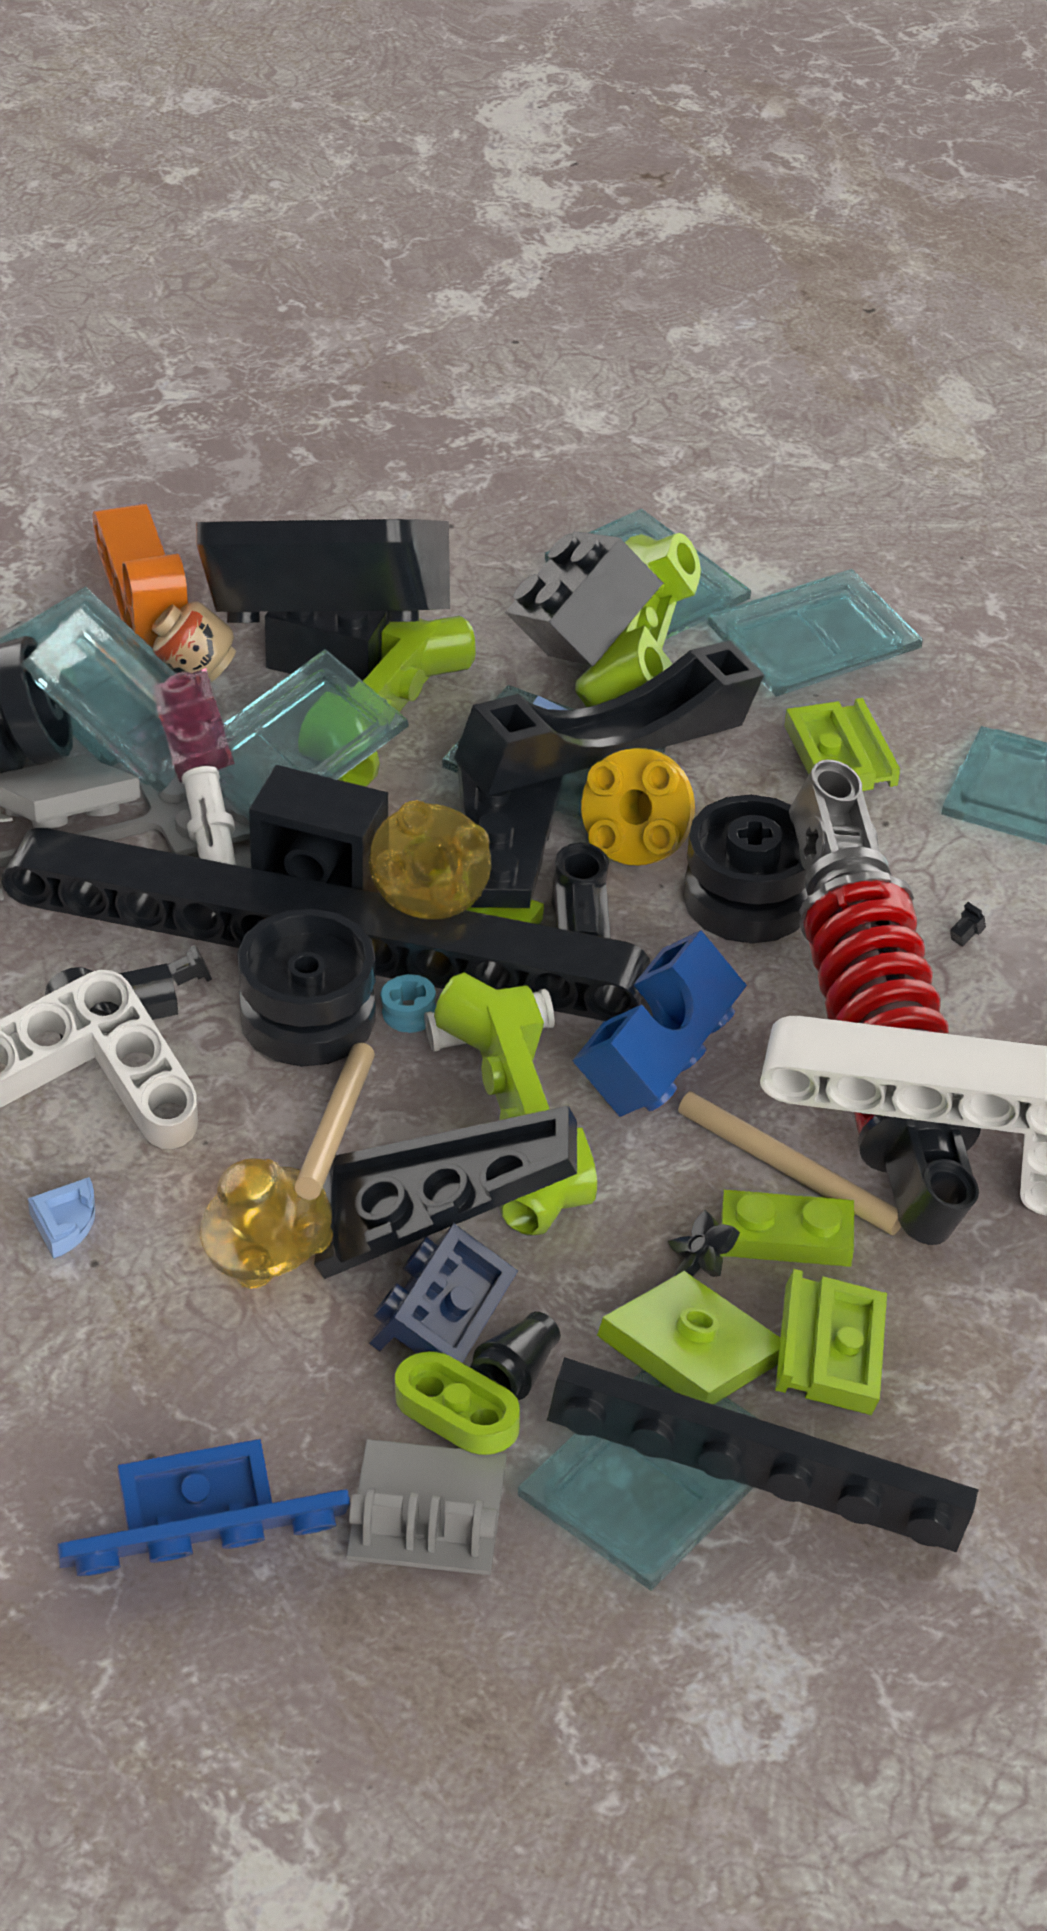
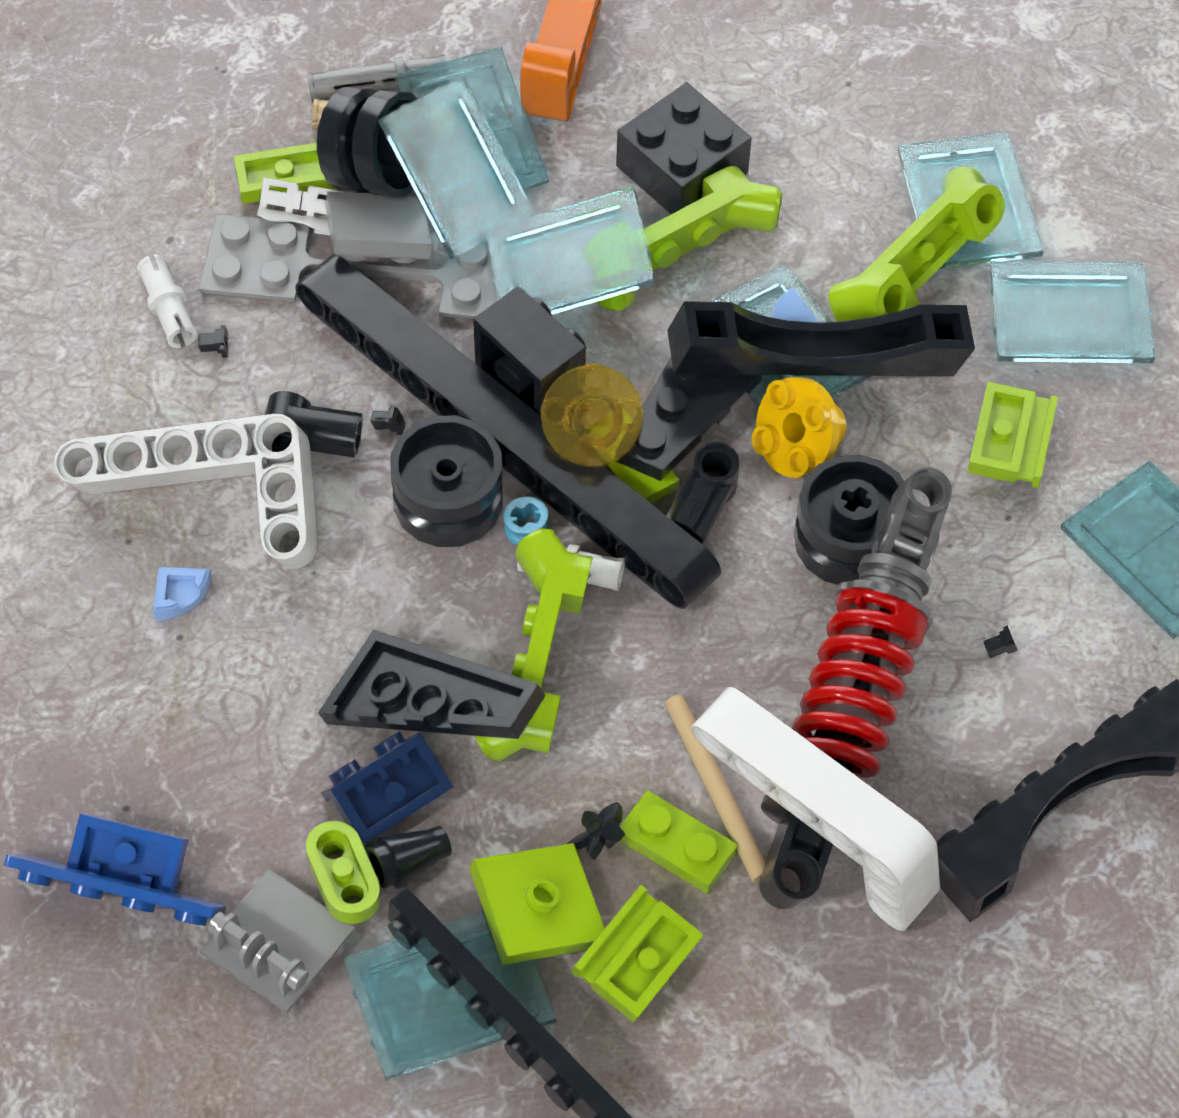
camera: 30 degrees right, 15 degrees up
(192, 722) = (504, 211): clear pink slope -> none
(193, 640) = (558, 128): tan head -> none
(209, 822) = (468, 302): white pin -> none
(261, 1224) = (300, 664): clear yellow plate -> none
(326, 566) = (679, 115): black windscreen -> none
(334, 1122) = (397, 604): tan bar -> none
(583, 596) = (873, 215): brick -> none
(640, 1055) = (727, 617): blue arch -> none

